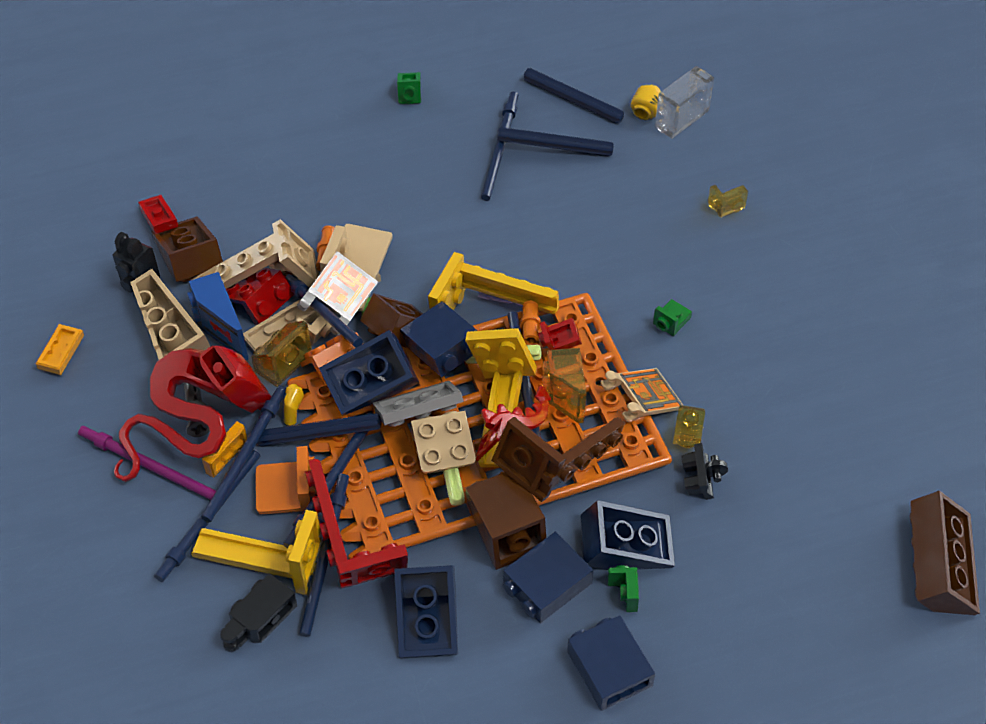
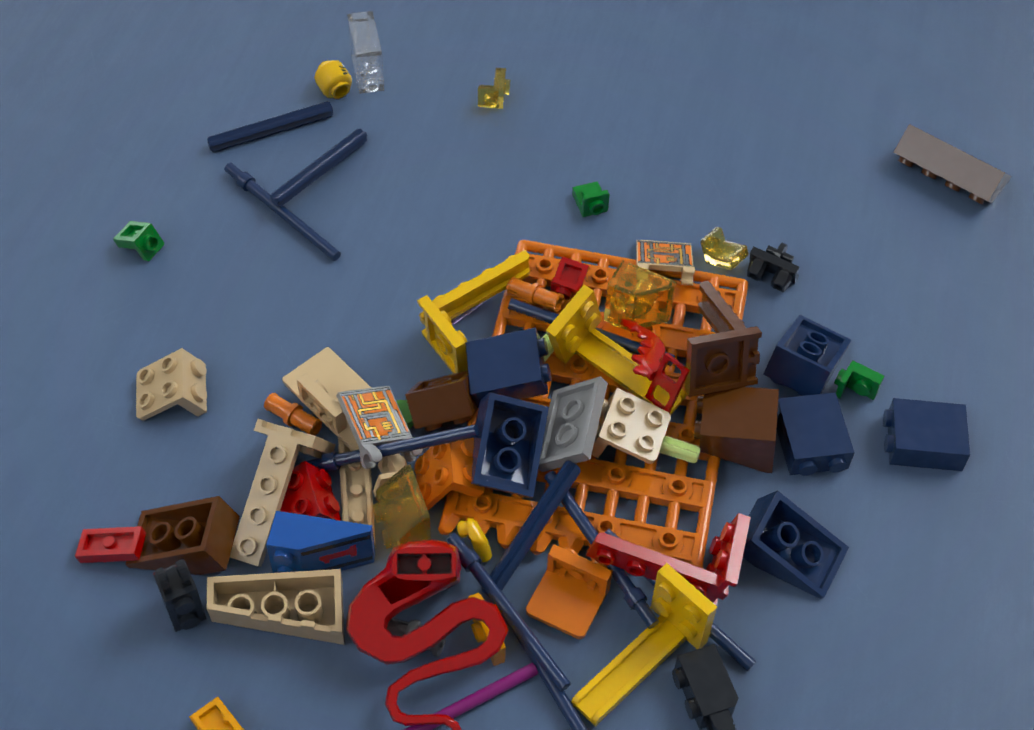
camera: 60 degrees left, 0 degrees up
(303, 174) = (169, 382): none -> tan bracket

